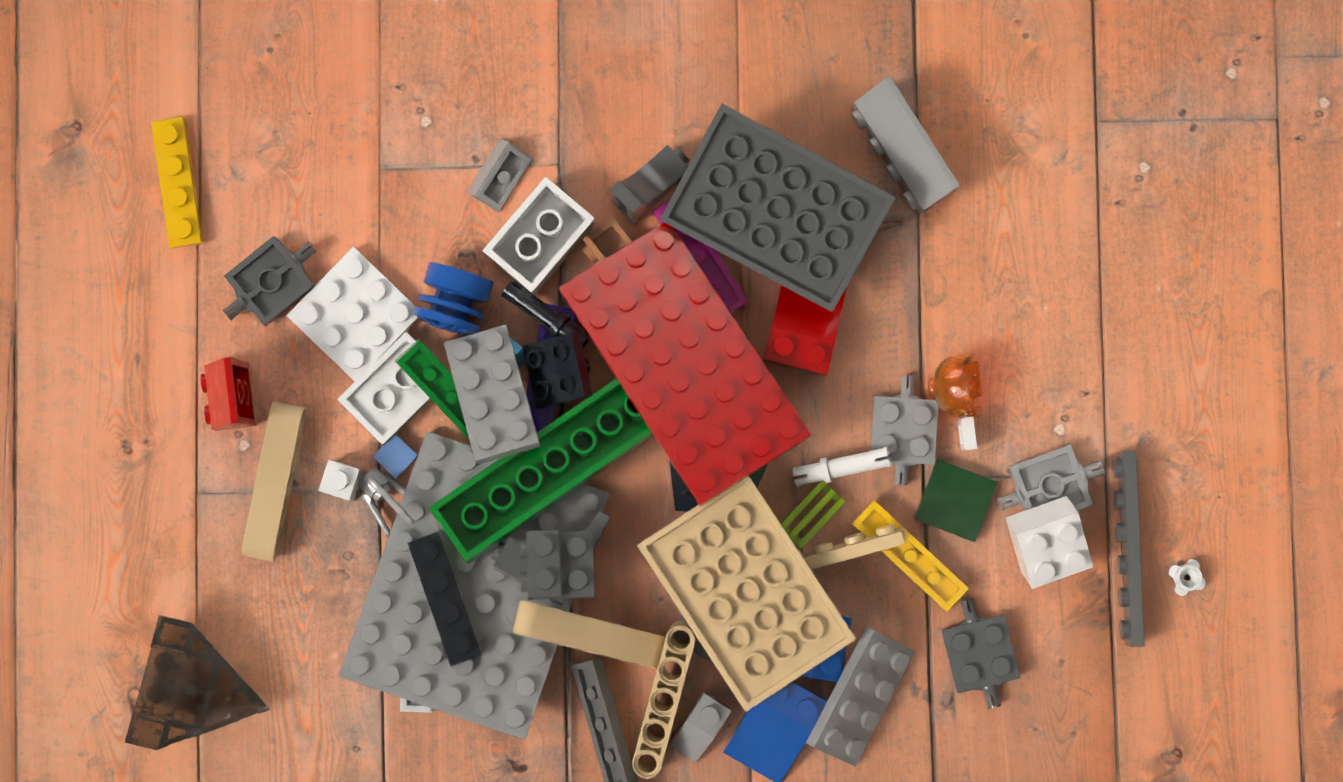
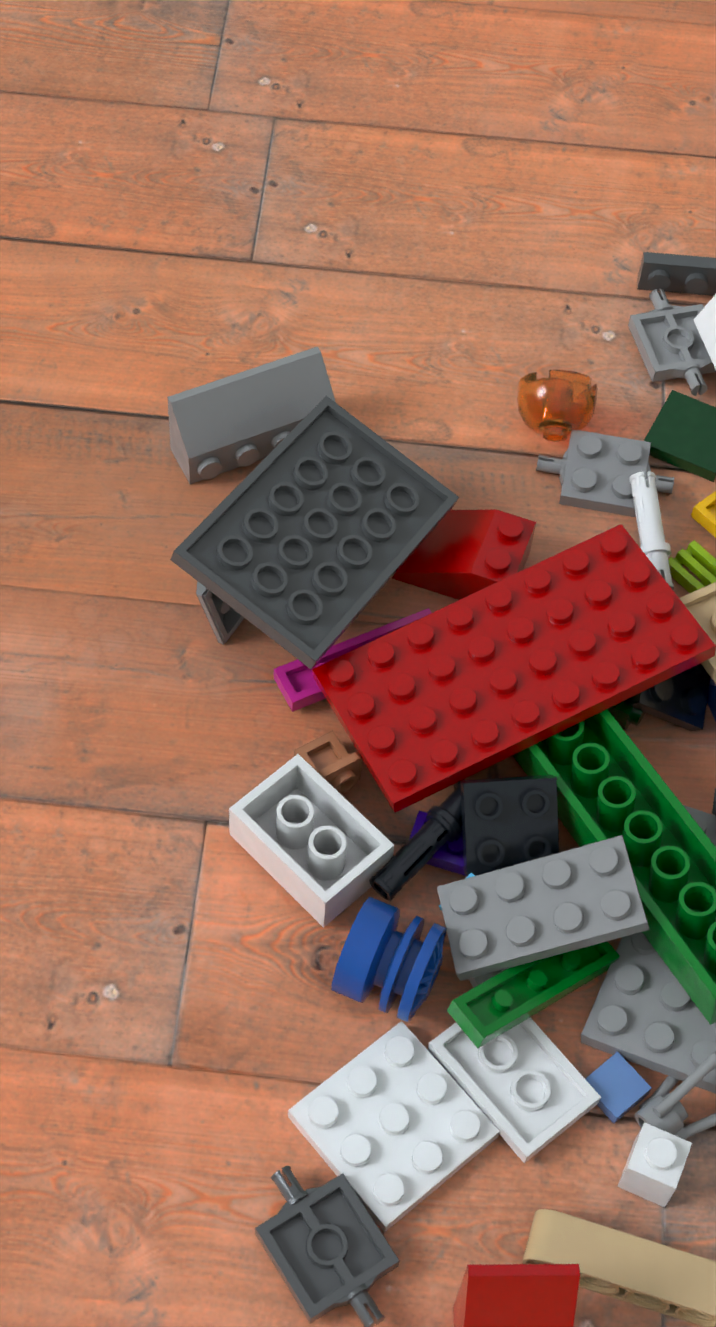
camera: 90 degrees left, 30 degrees down
(499, 175) = (208, 898): light grey slope -> none
(649, 184) = (262, 700): dark grey arch -> none
(967, 433) = (614, 408): white tile -> none

